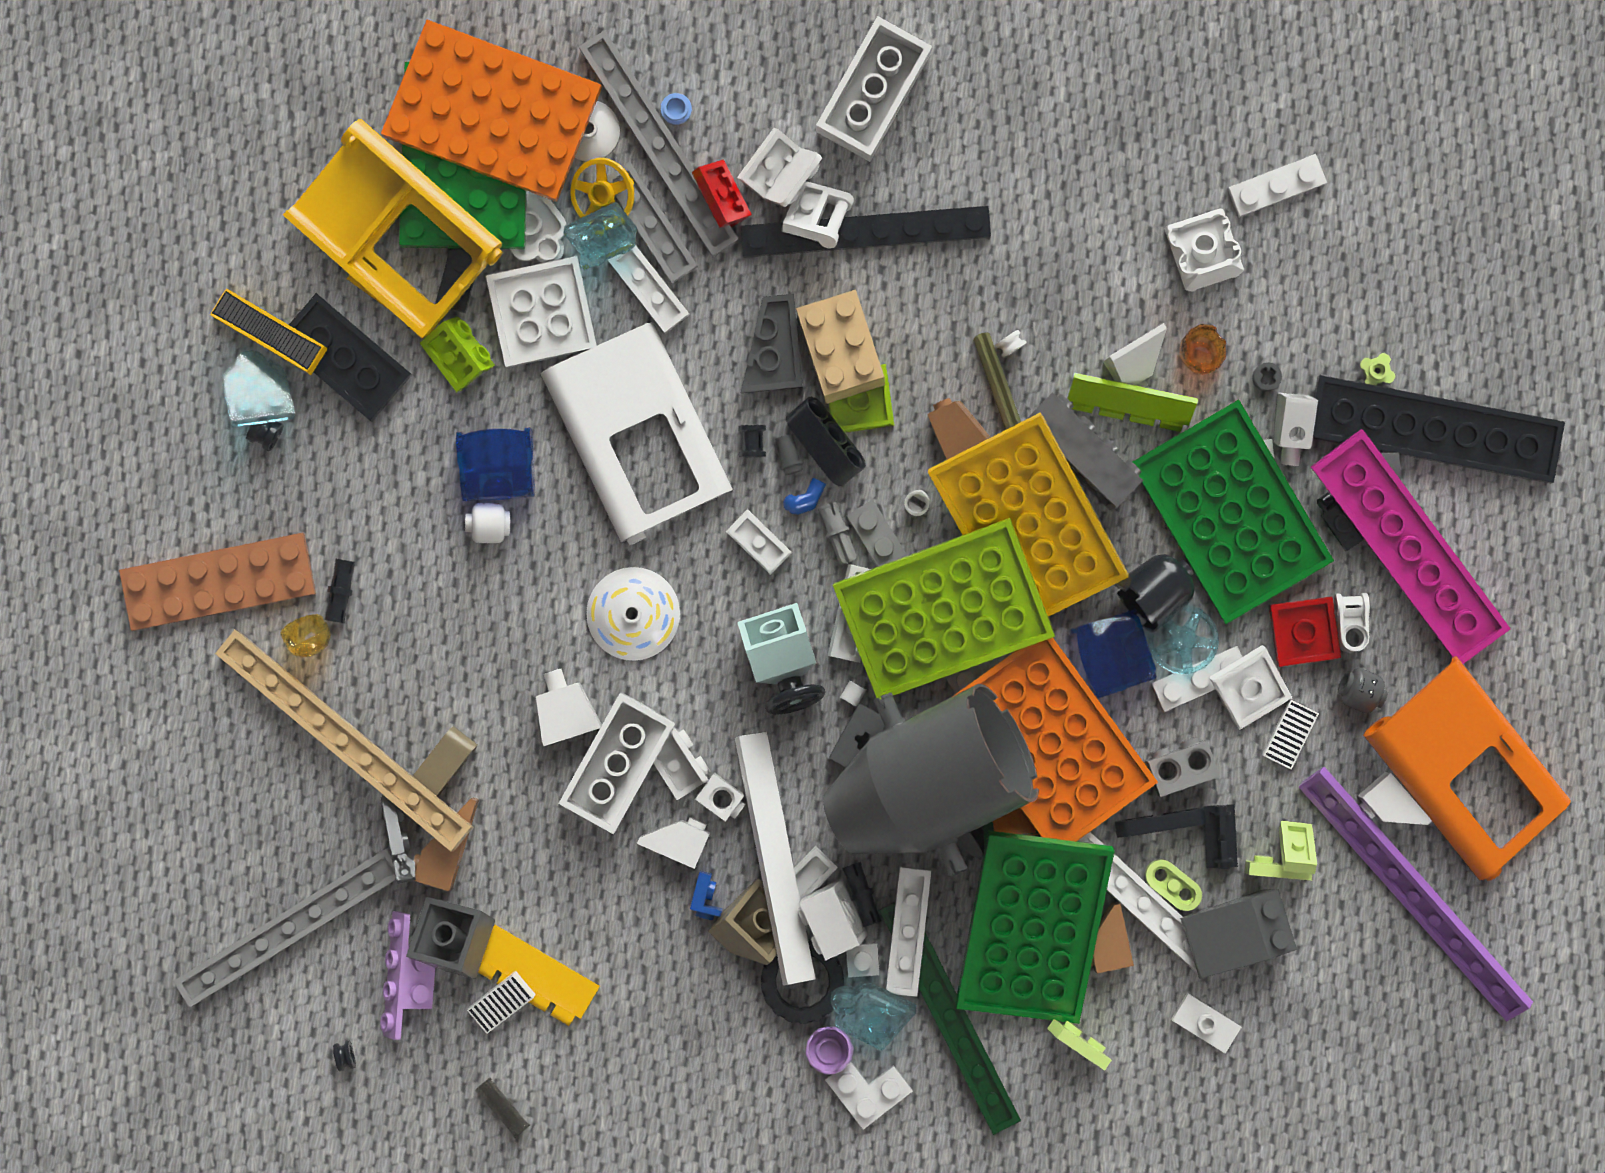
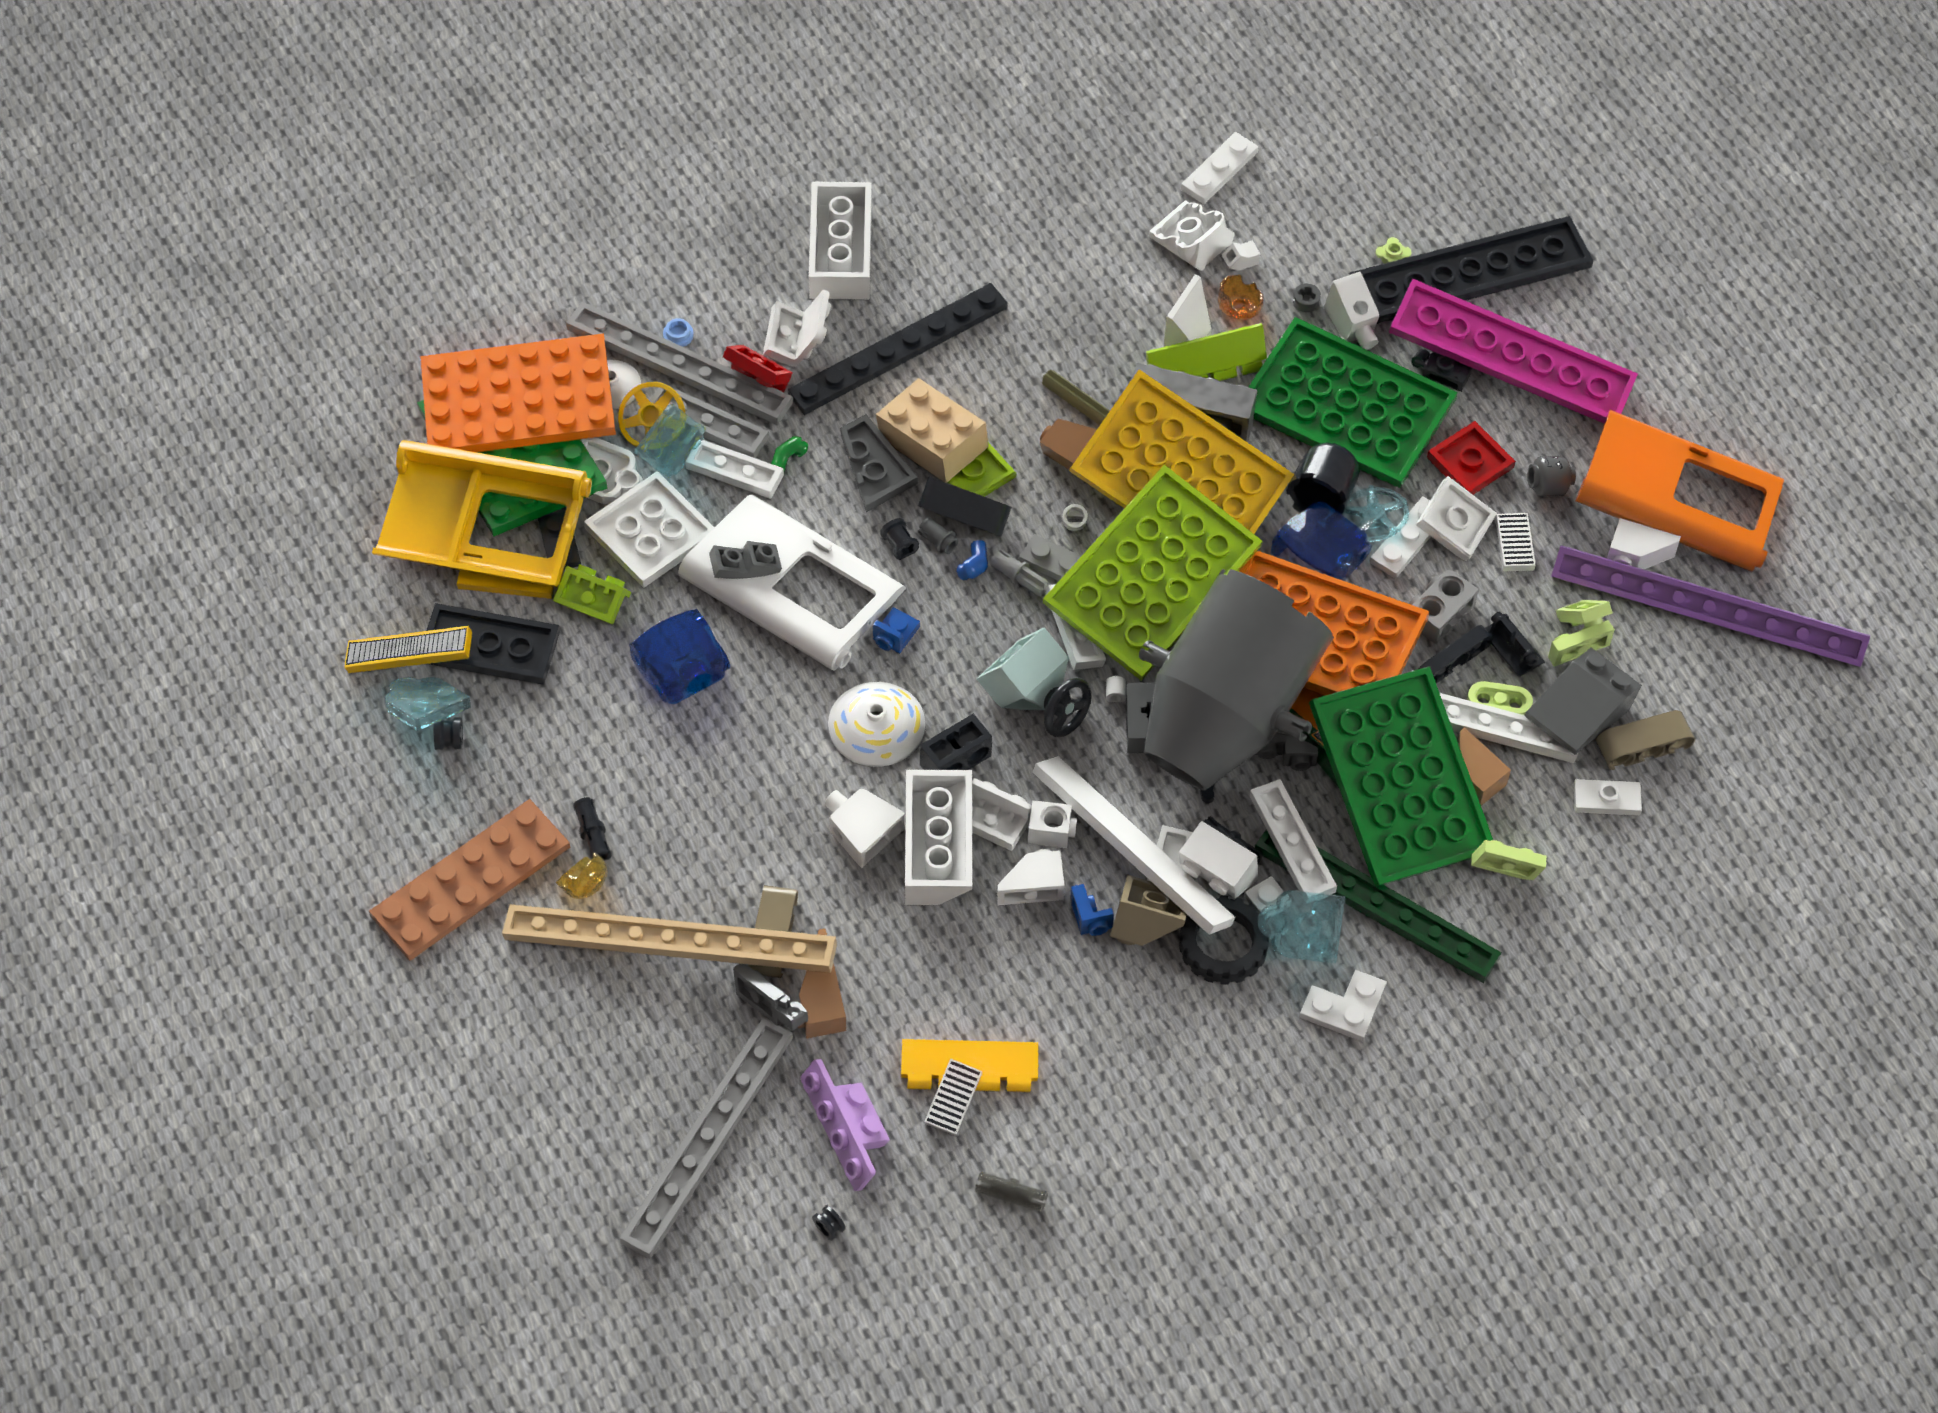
camera: 30 degrees left, 30 degrees down
(451, 937) = (872, 1057): dark grey slope -> none
(488, 523) = (700, 707): white head -> none
(598, 402) = (752, 561): none -> dark grey slope
(678, 687) = (957, 747): none -> black brick
(698, 531) = (895, 630): none -> blue bracket
(704, 290) = (792, 446): none -> green arm
(759, 542) = (955, 612): white plate -> none
(808, 209) = (840, 349): white plate -> none
(829, 1050) = (1288, 979): lavender hair -> none
(1010, 344) = (1076, 368): white bush -> none
(1234, 299) = (1241, 255): none -> white piece
(1272, 992) = (1645, 738): none -> dark tan beam
(1352, 619) = (1507, 432): white piece -> none

